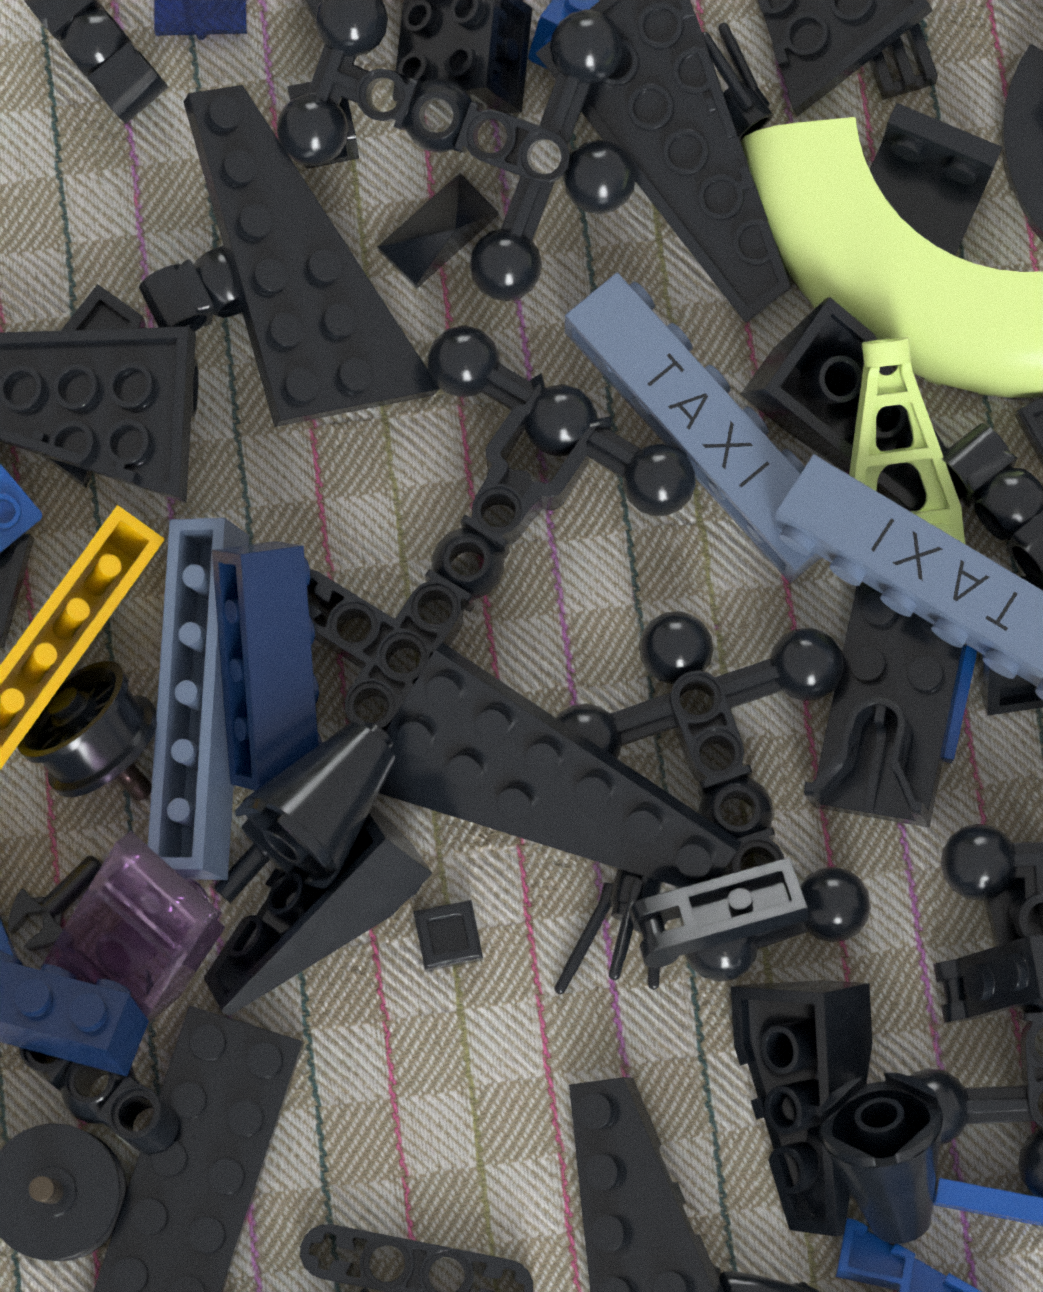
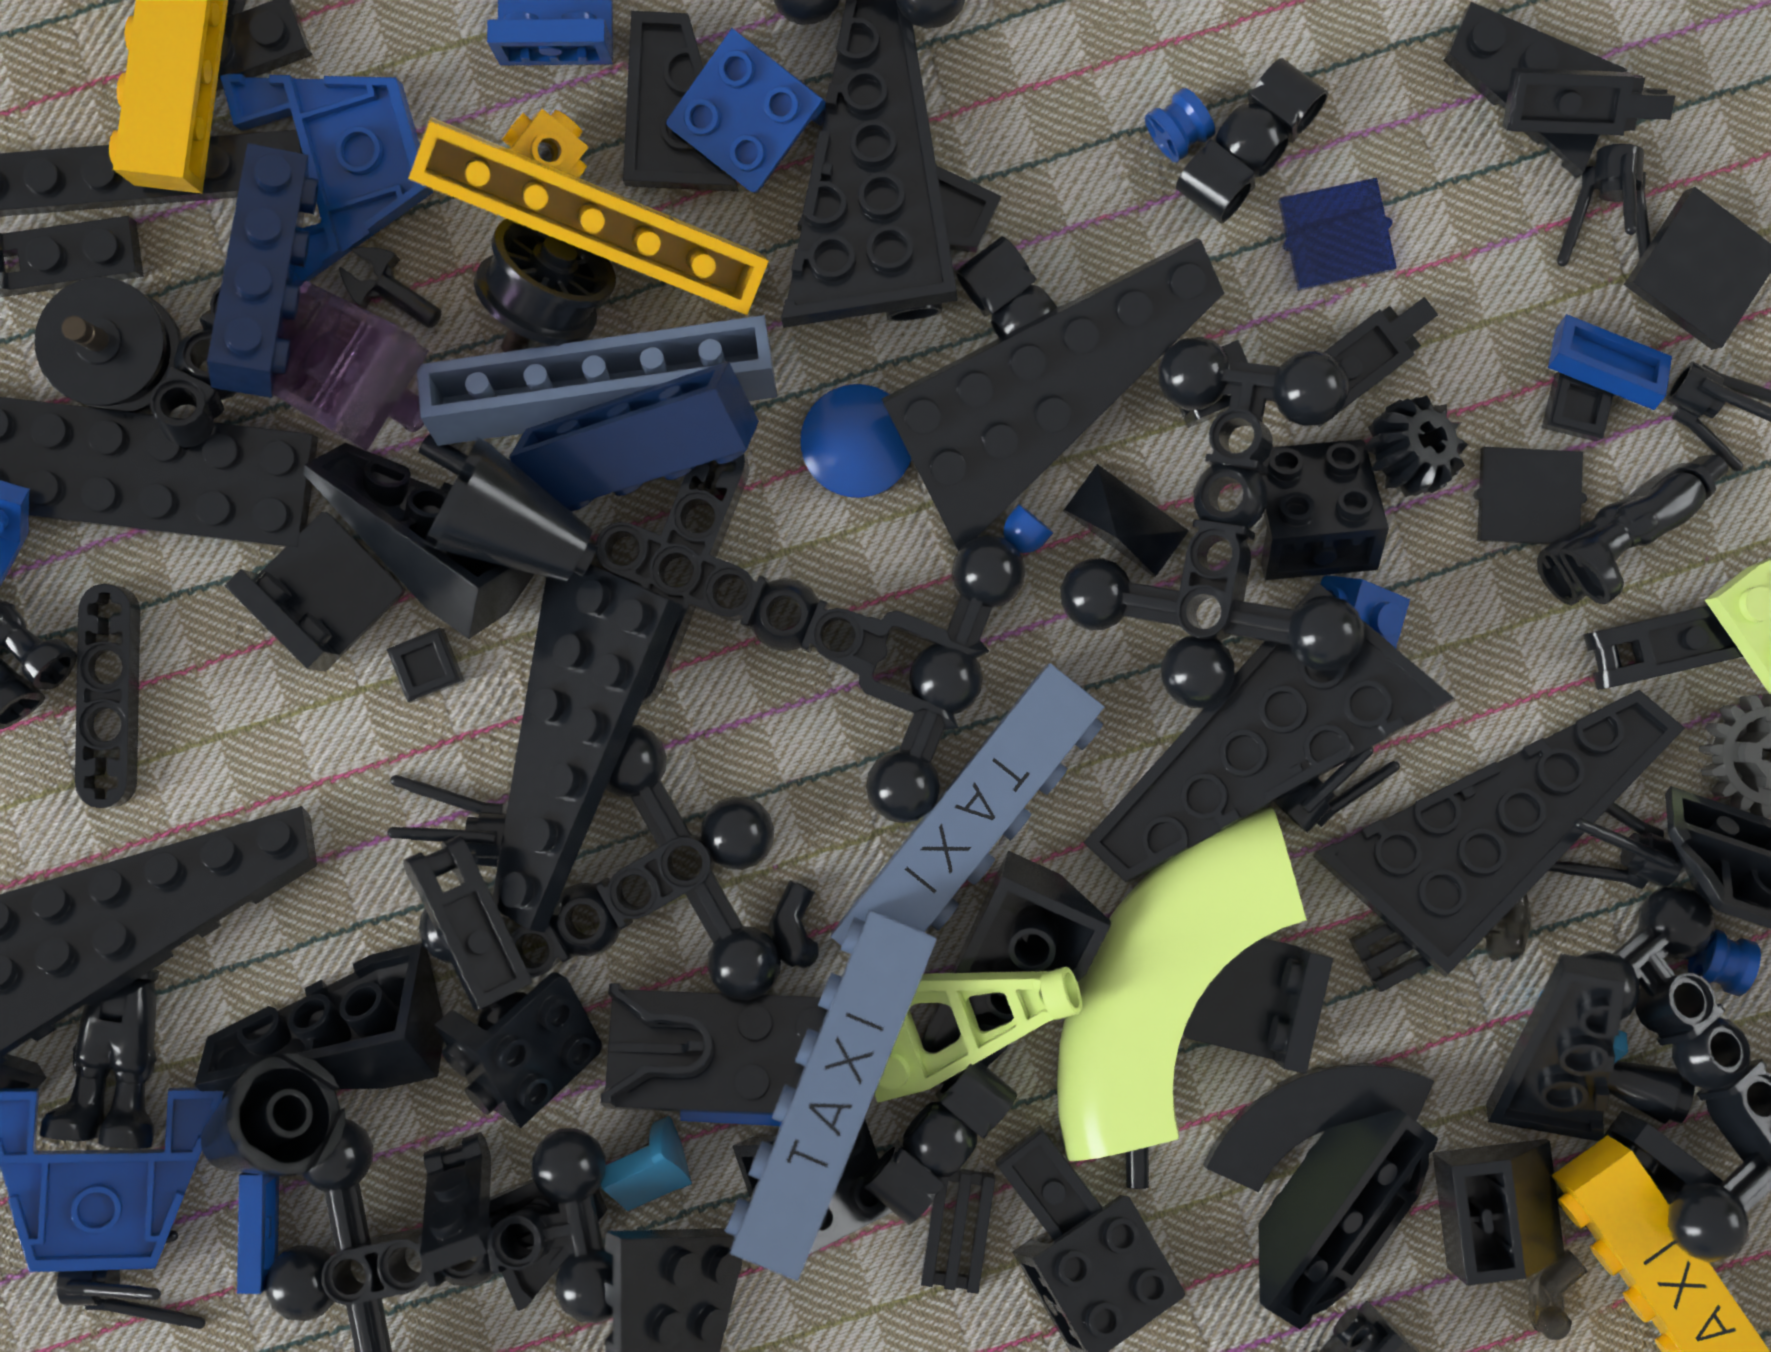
camera: 70 degrees right, 10 degrees up
(65, 107) = (1180, 125): none -> blue wheel
(308, 470) = (853, 442): none -> blue dish
(352, 1022) = (319, 593): none -> black bracket
(428, 322) = (1025, 530): none -> blue hinge
(780, 618) = (788, 929): none -> black arm
(871, 897) = (525, 1053): none -> black bracket
(999, 795) = (650, 1170): none -> dark azure tile

